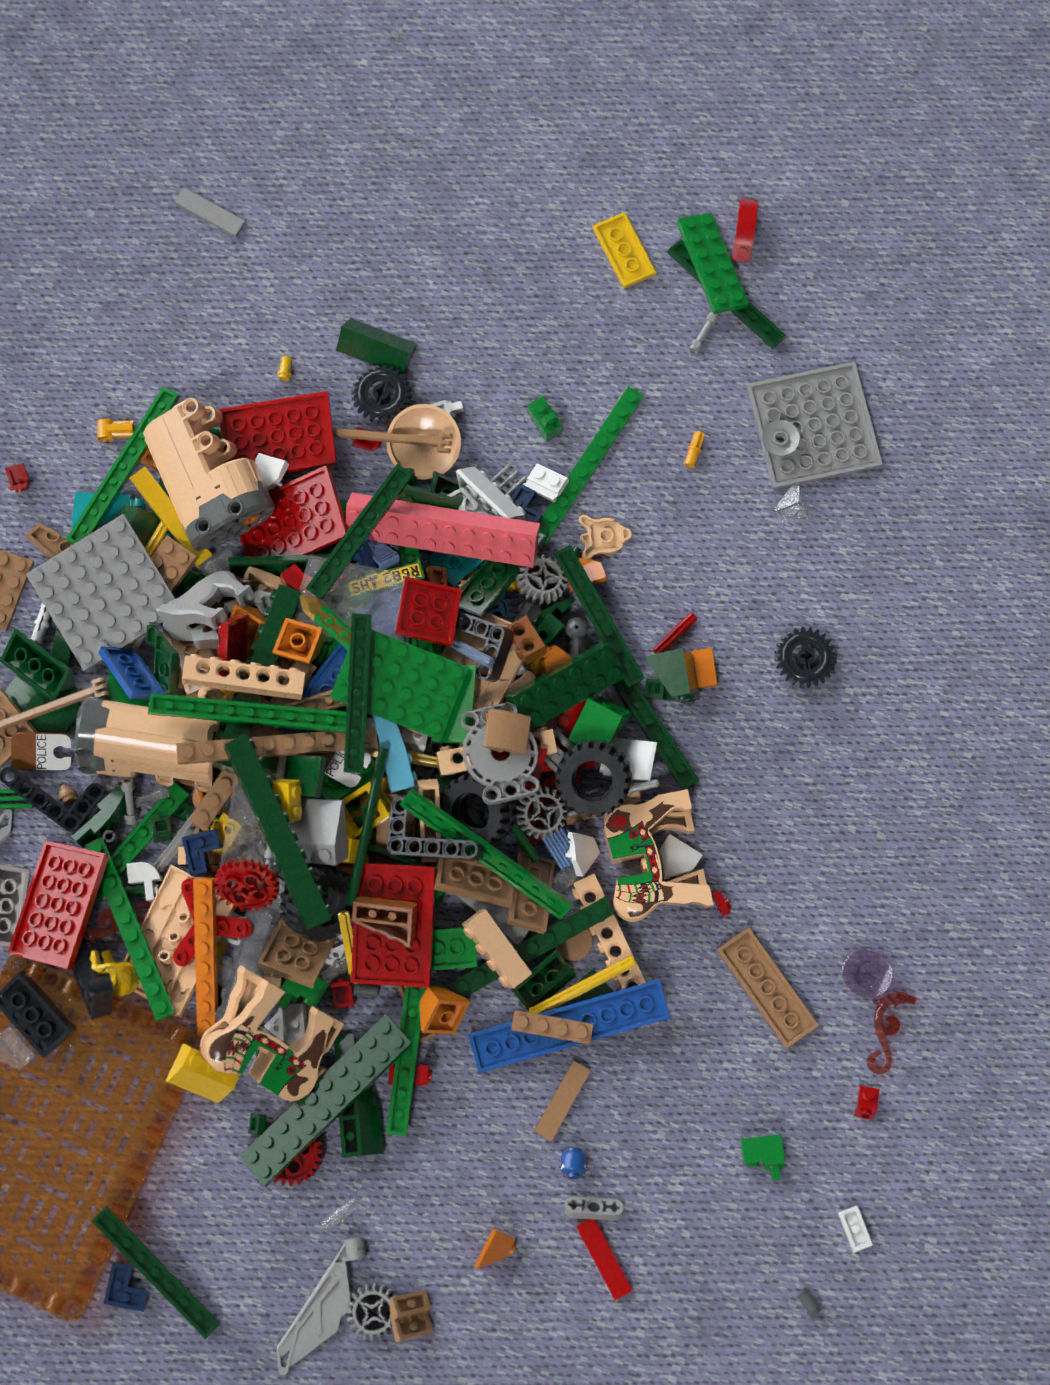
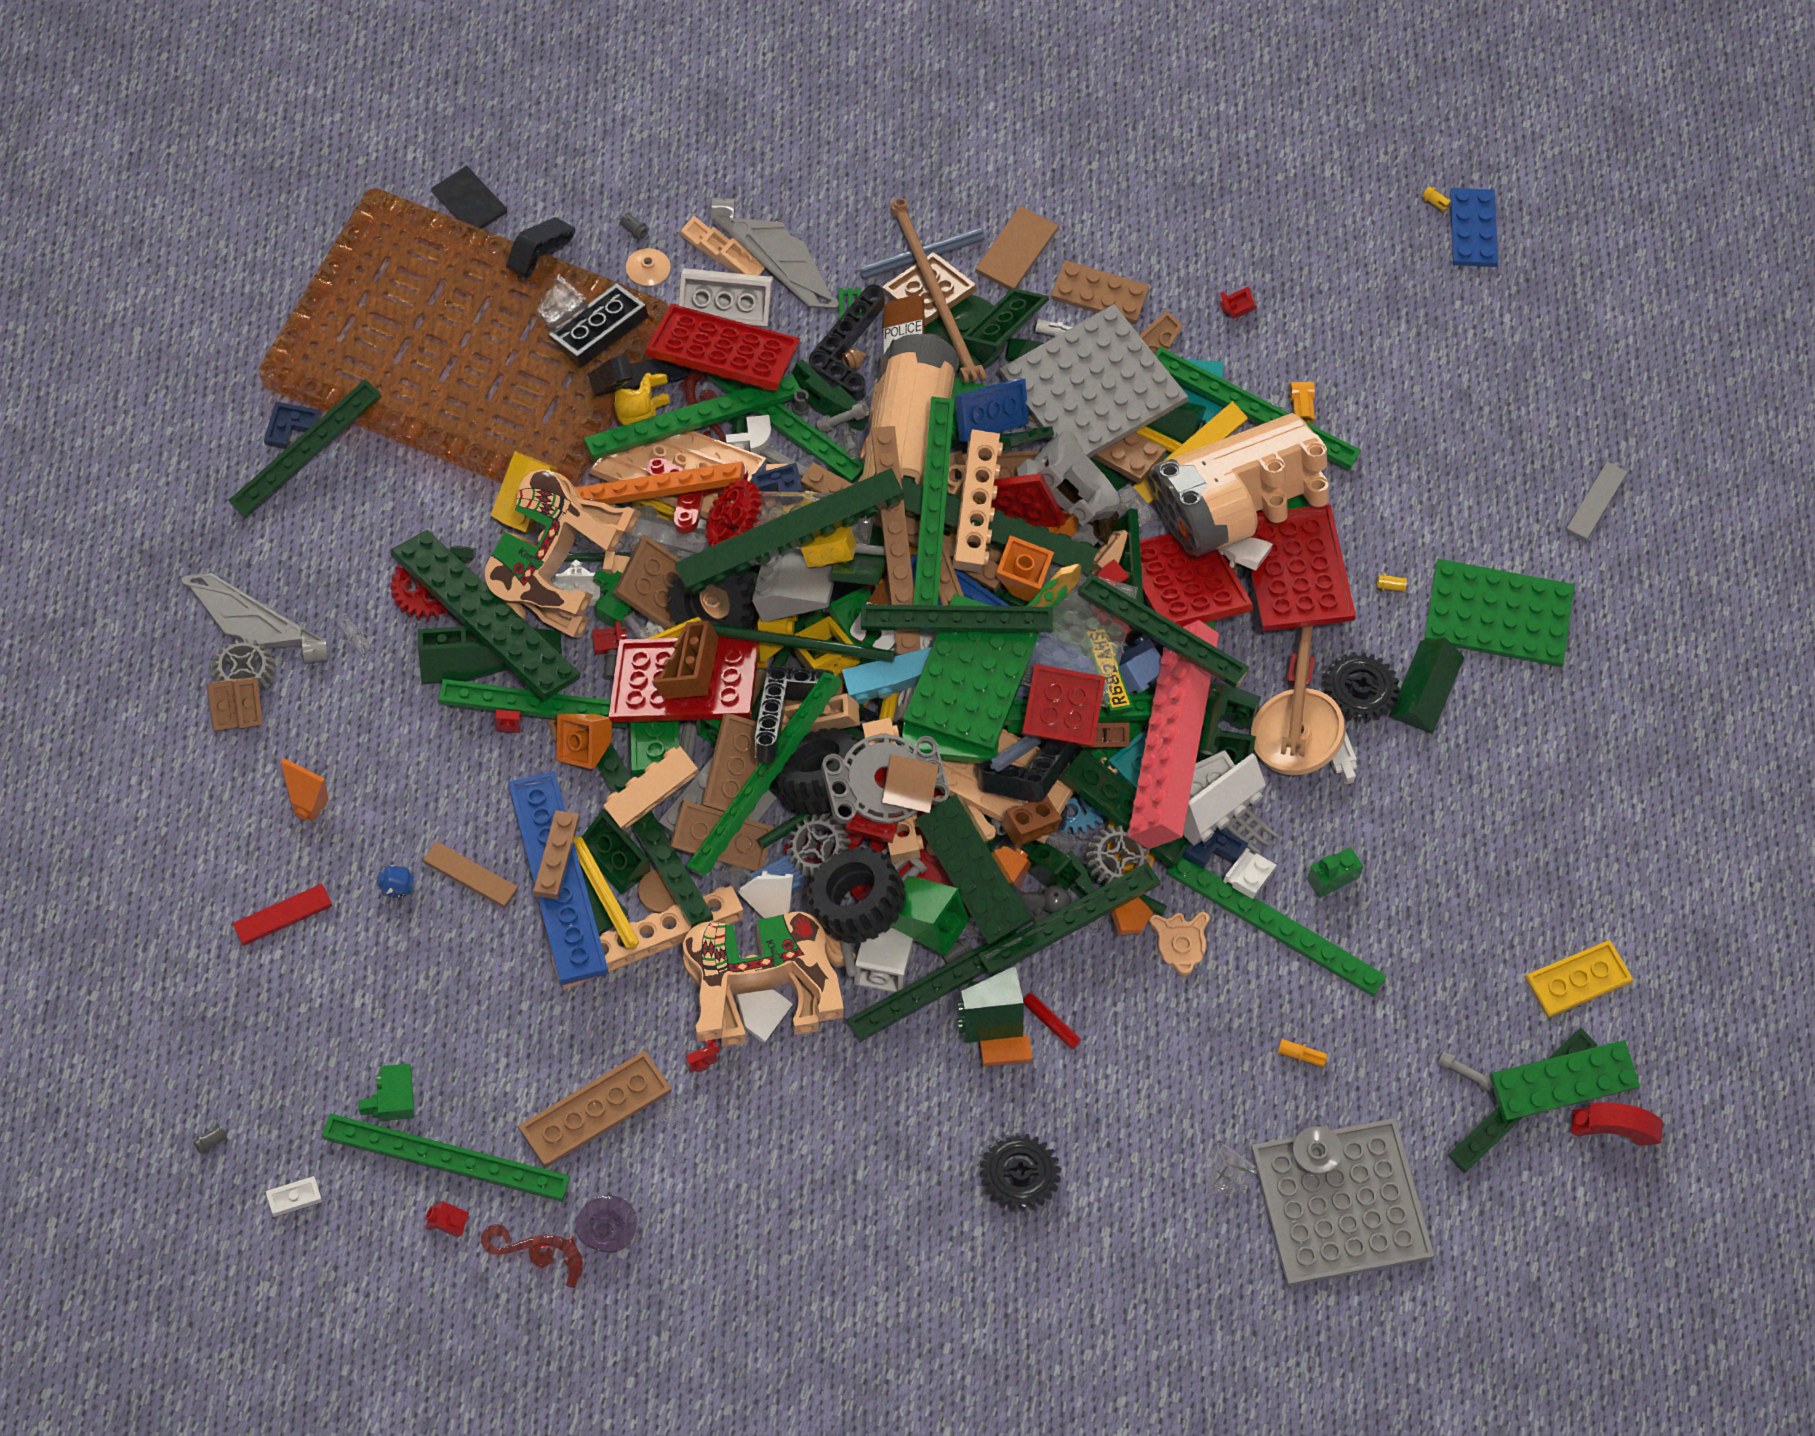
camera: 85 degrees right, 15 degrees down
(161, 829) = (809, 451): dark green slope -> none
(310, 290) = (1500, 612): none -> green plate
(587, 1214) = (334, 910): light grey beam -> none
(814, 1107) = (446, 1157): none -> green plate

